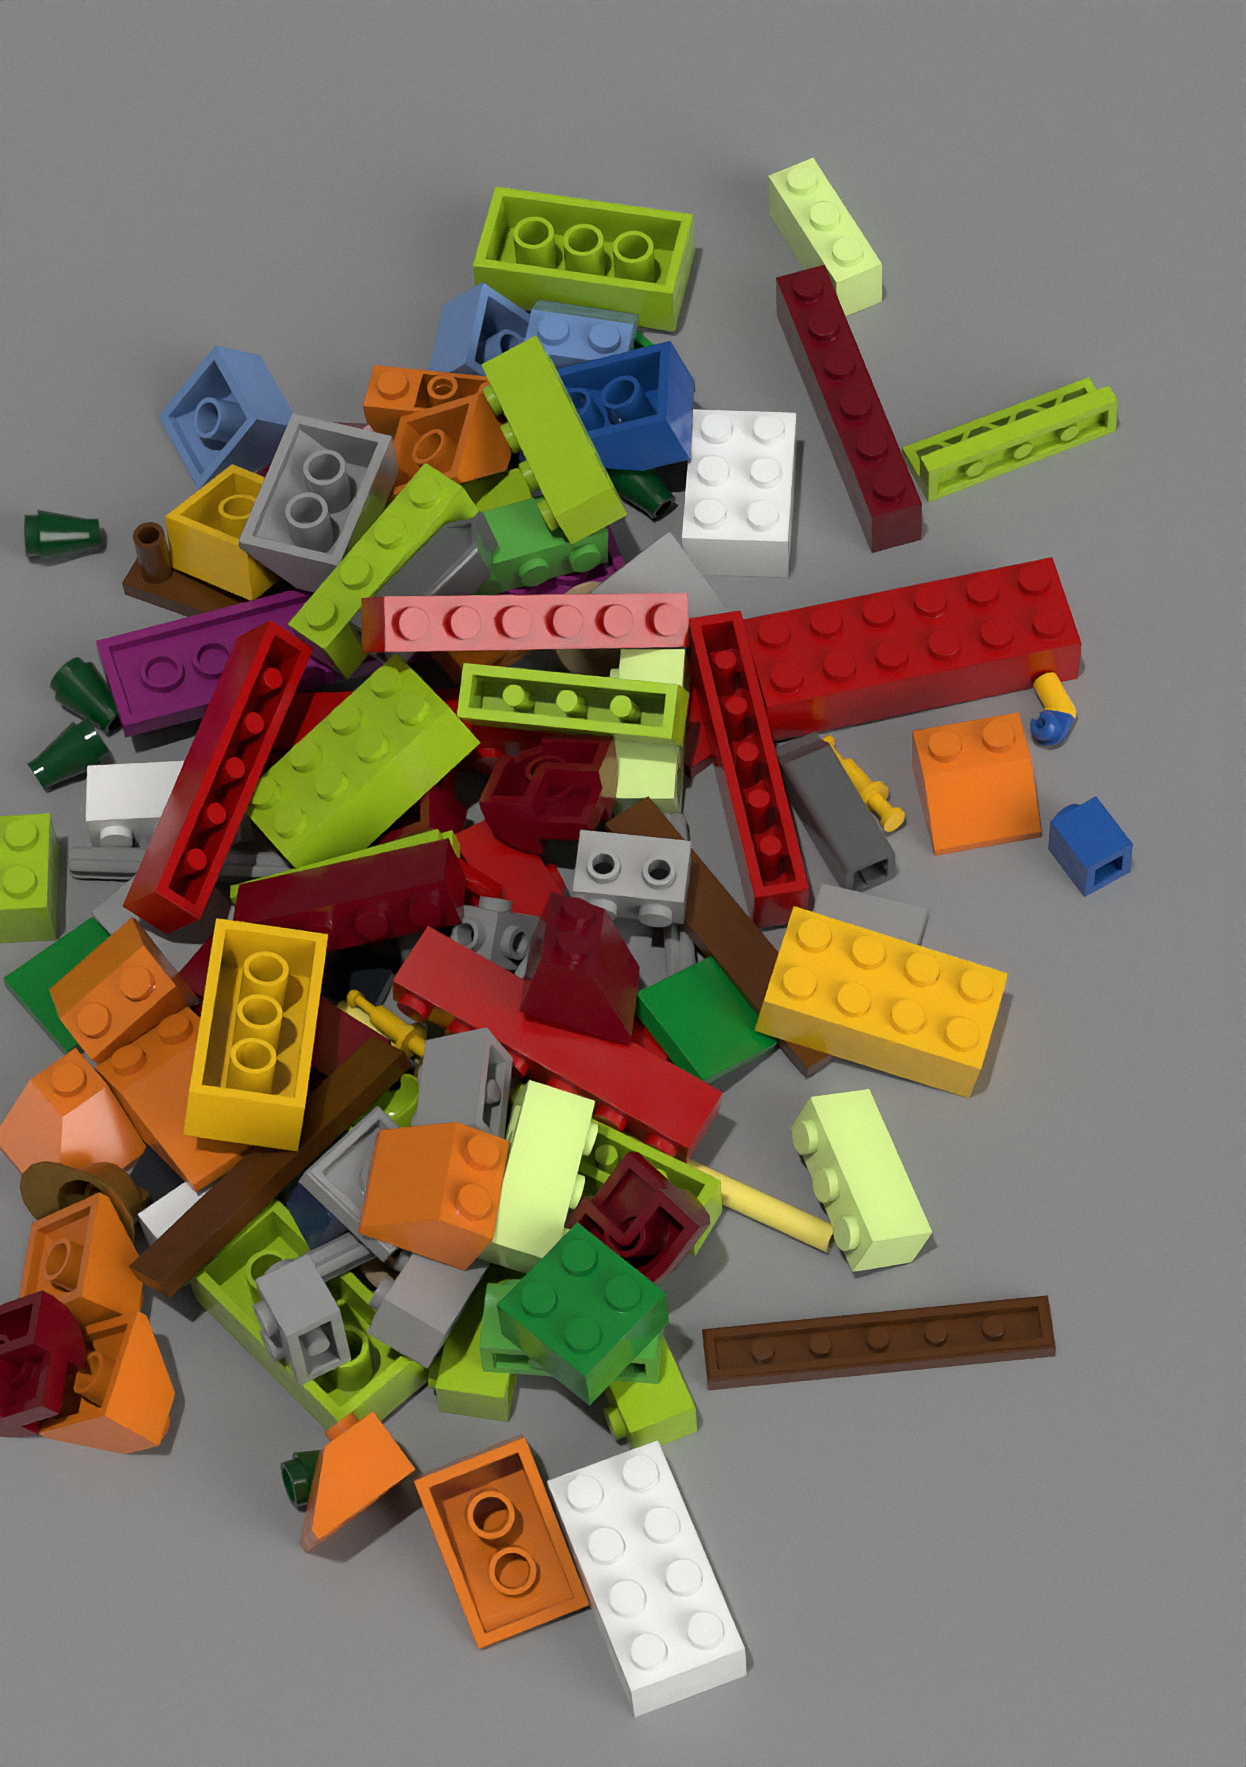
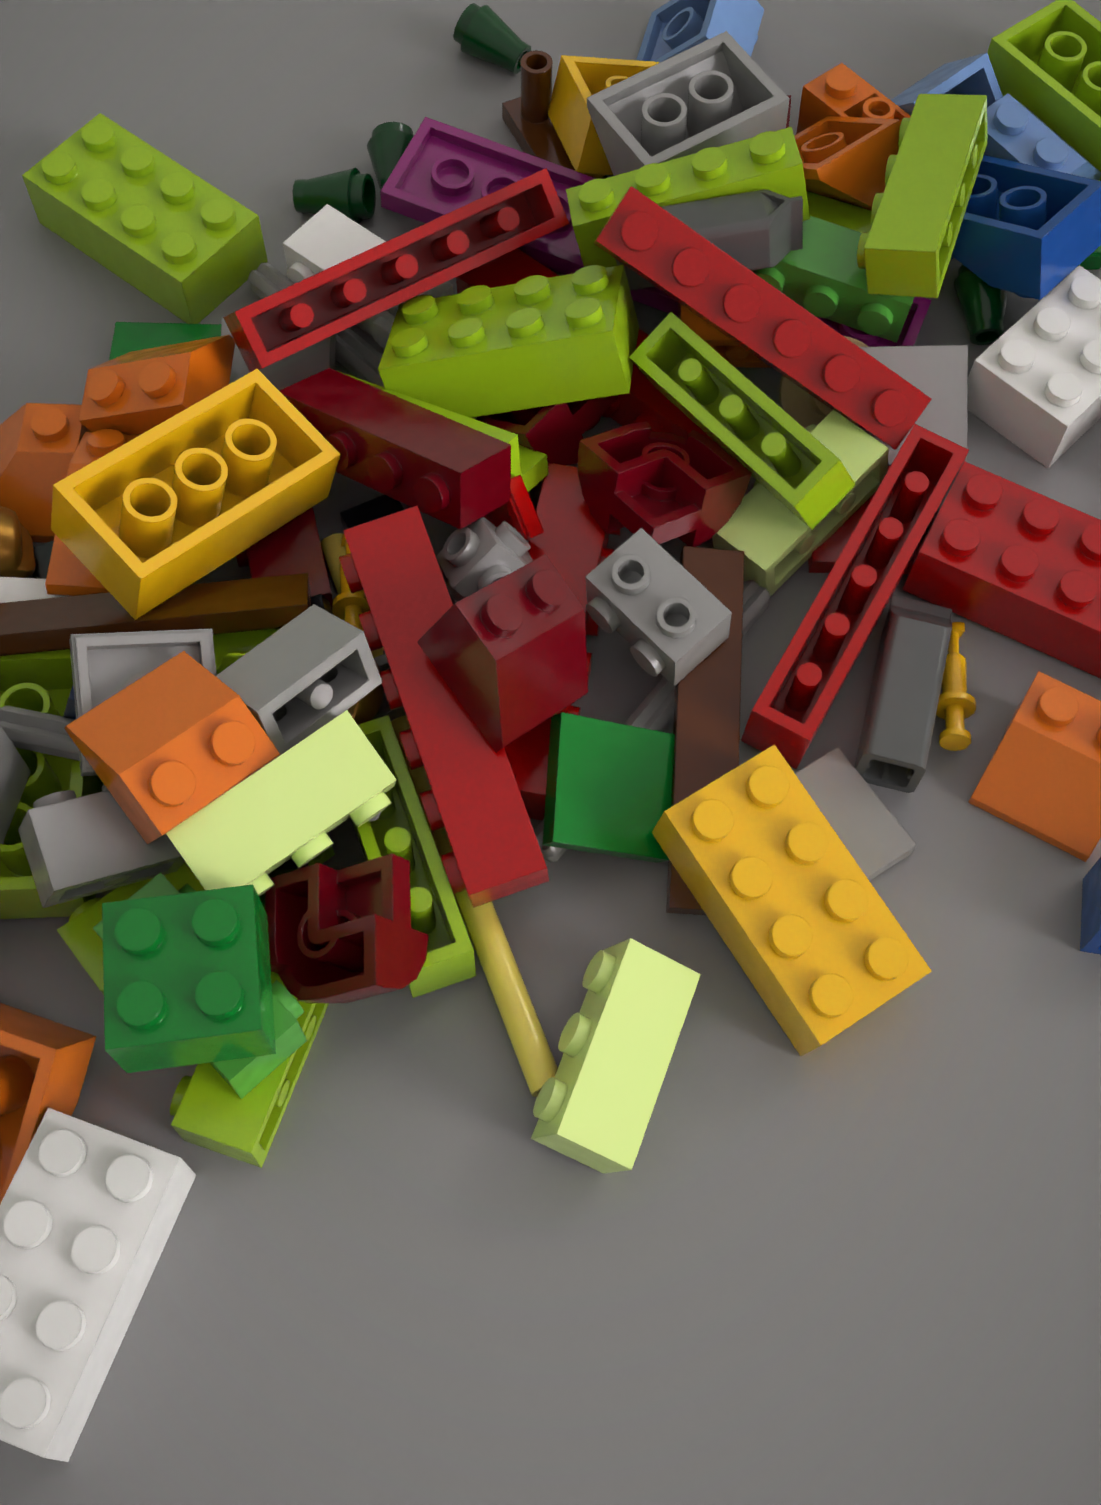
camera: 35 degrees right, 5 degrees up
(878, 1342) = (502, 1234): reddish brown tile -> none

